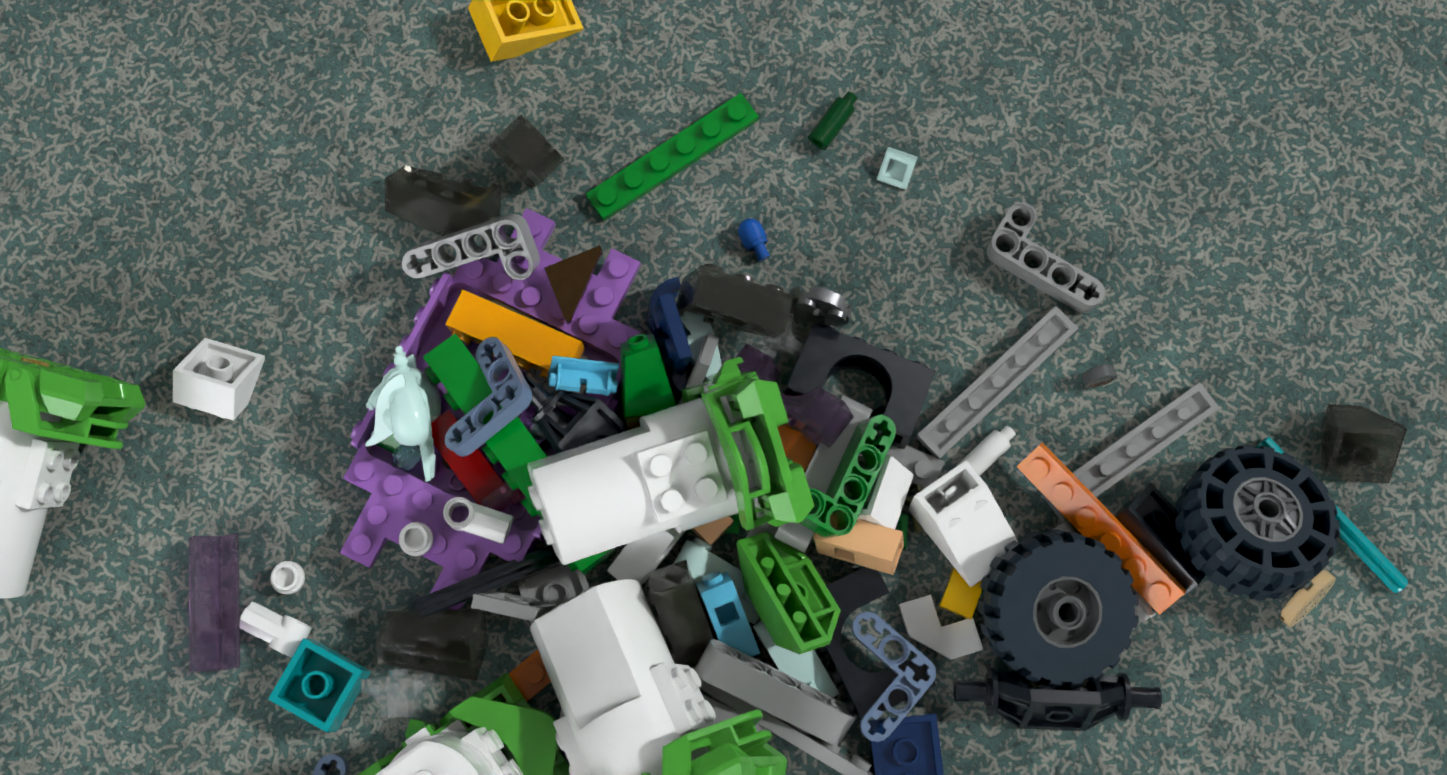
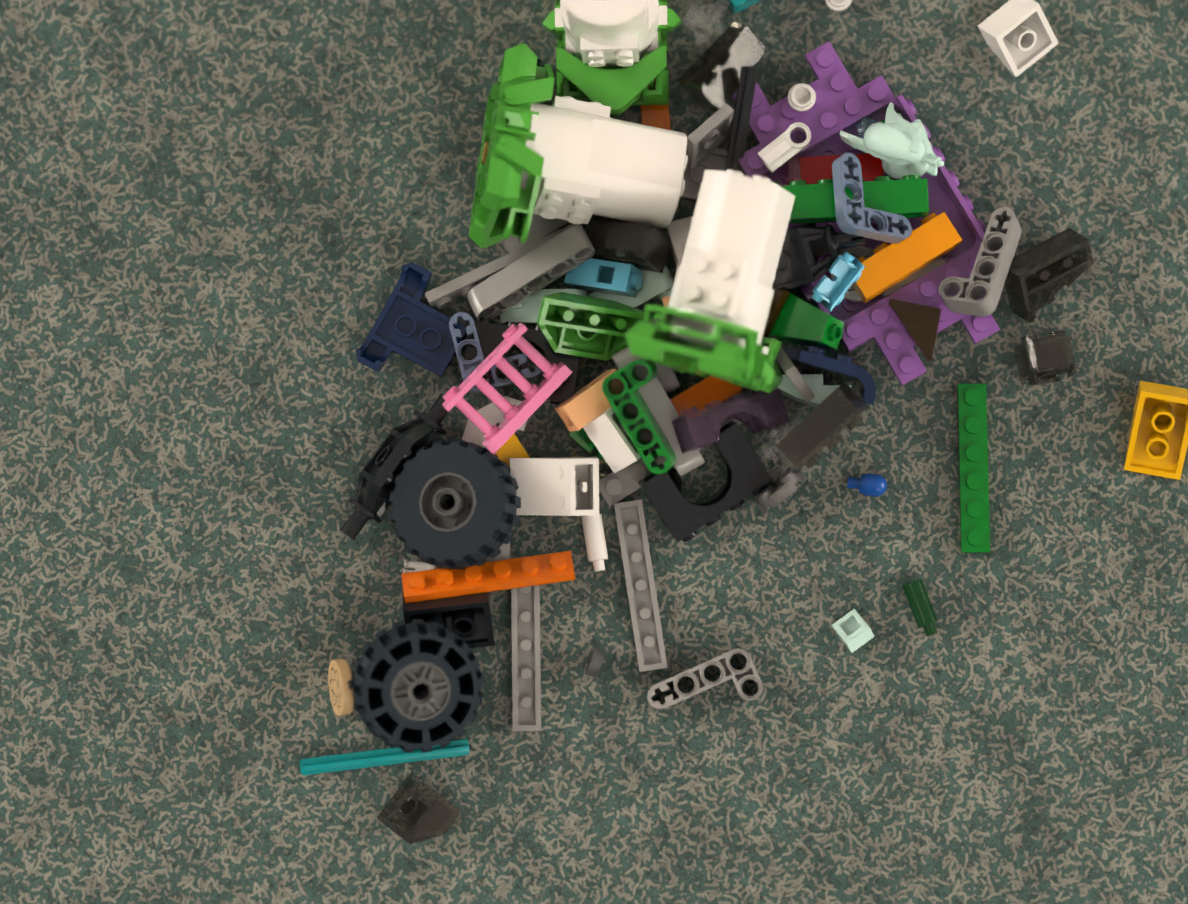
camera: 125 degrees right, 5 degrees up
(929, 607) = (514, 415): none -> bright pink fence

